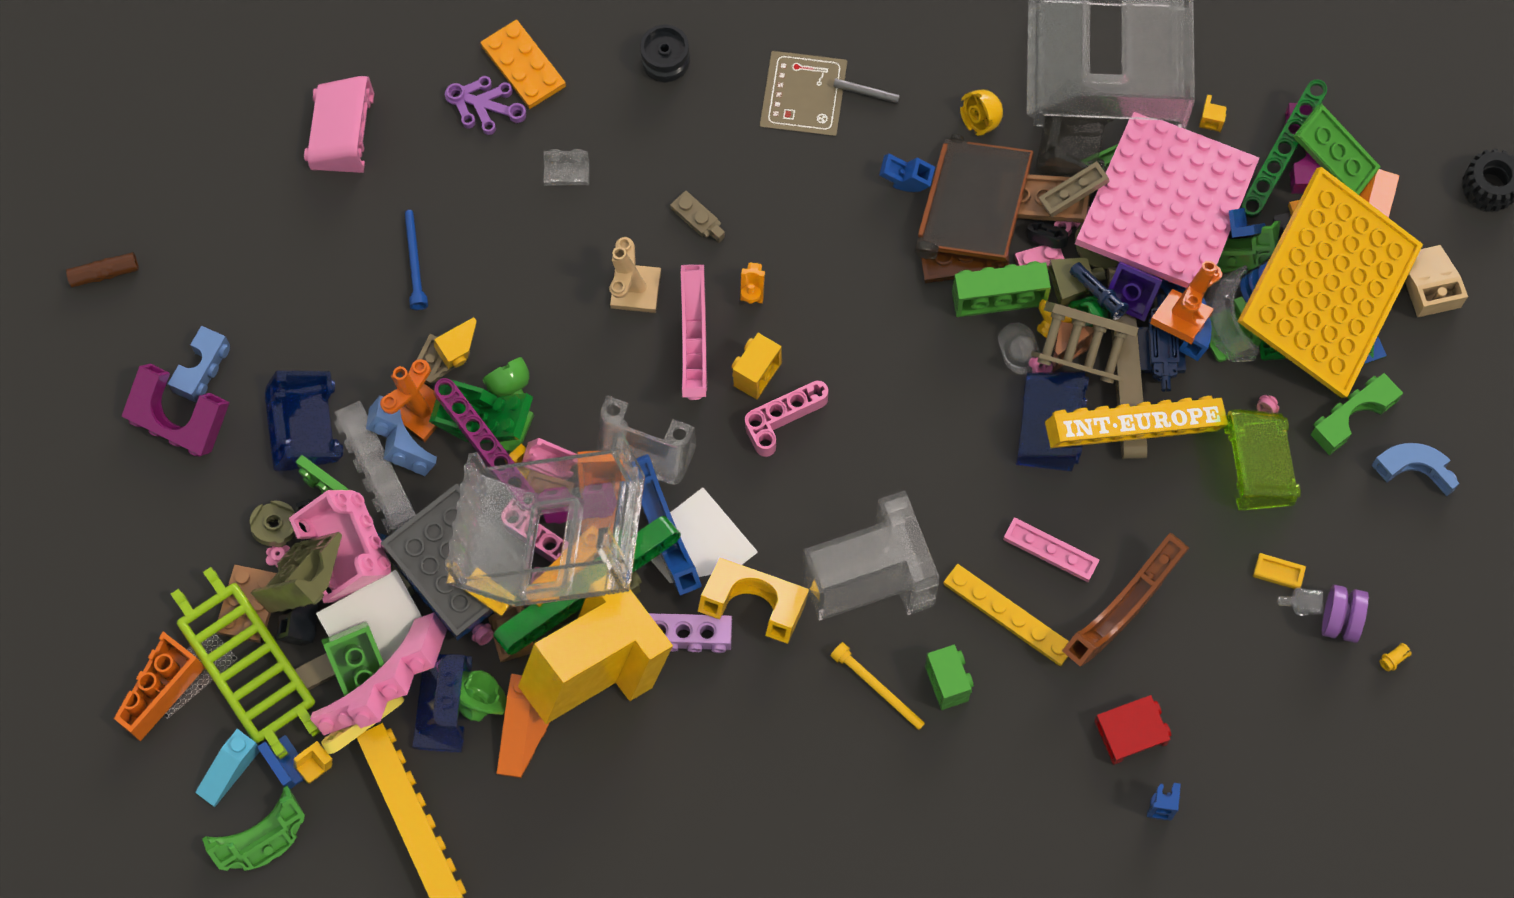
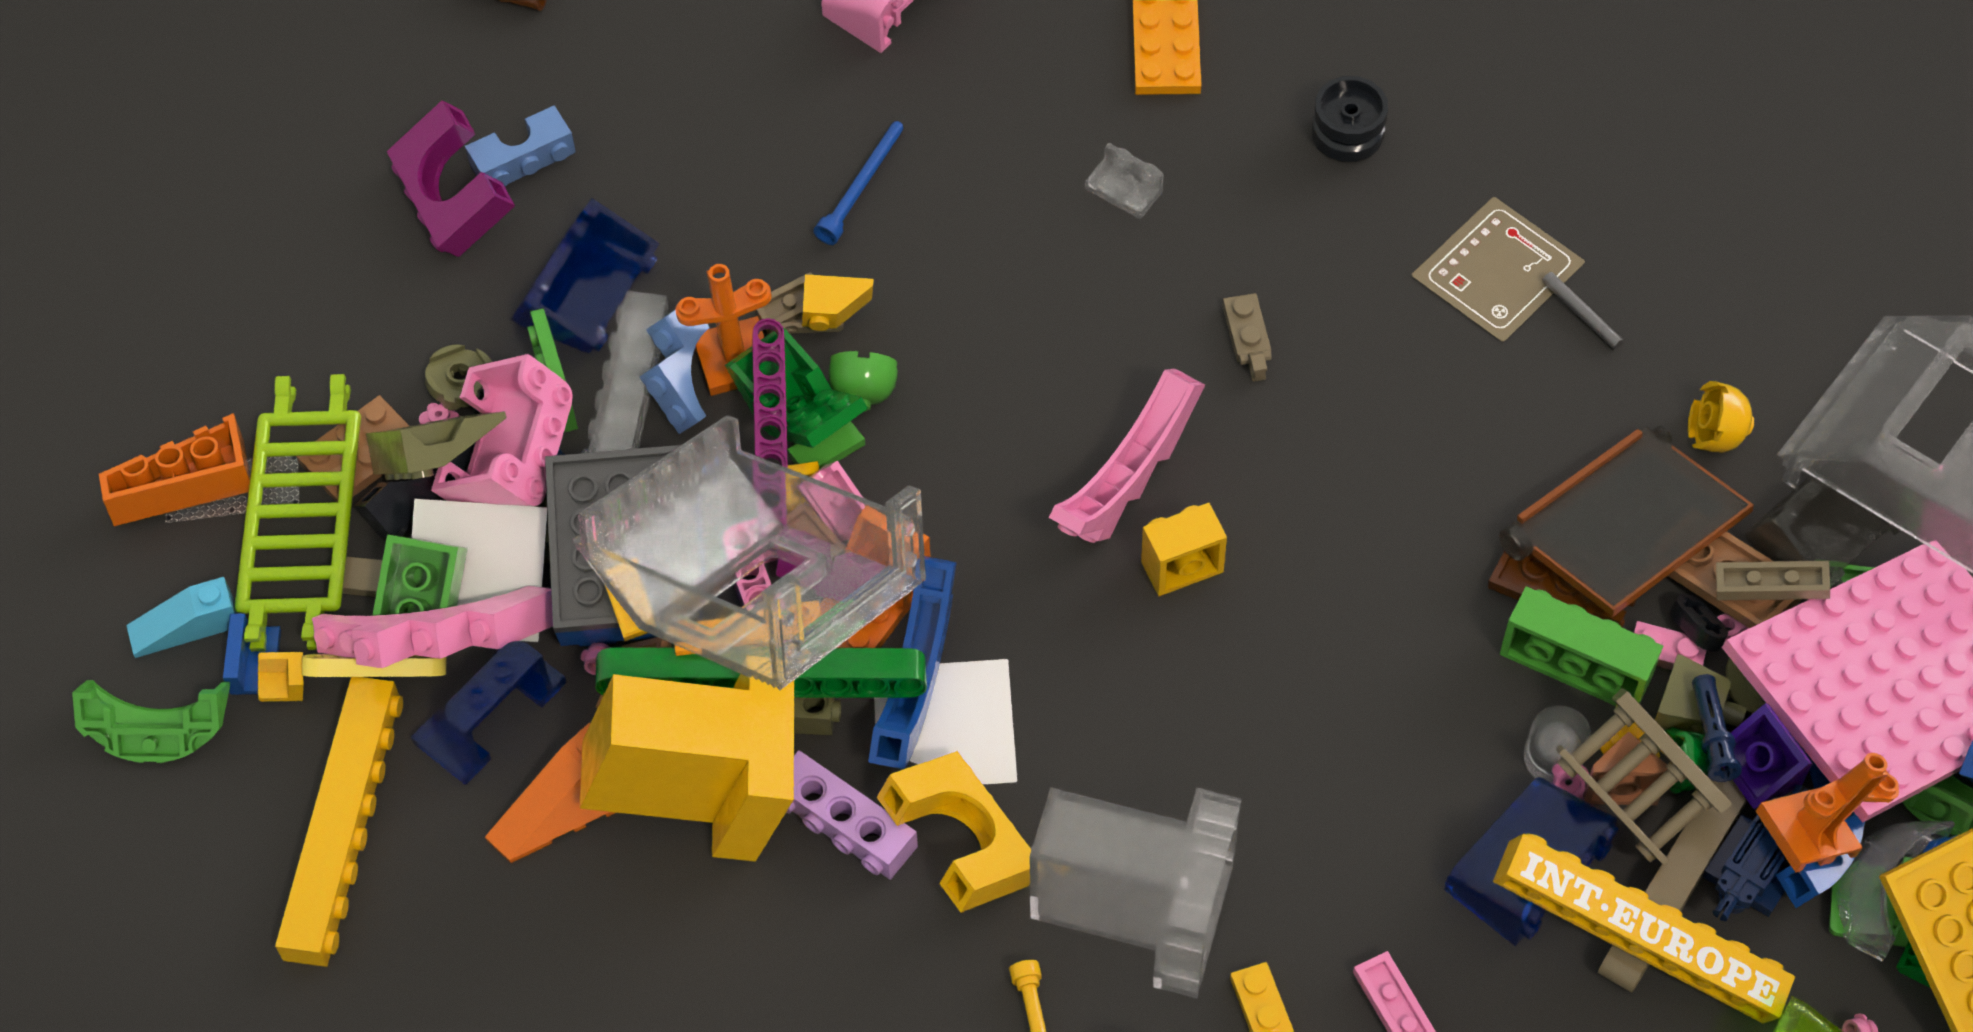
camera: 35 degrees right, 10 degrees down
(481, 696) = (532, 723): bright green hat -> none
(483, 102) = (1084, 53): medium lavender plant -> none
(633, 285) = (1098, 362): tan piece -> none
(668, 456) = (982, 587): clear windscreen -> none
(752, 283) = (1253, 448): light orange hips -> none
(789, 414) = (1180, 636): bright pink beam -> none
(907, 176) = (1558, 440): blue brick -> none

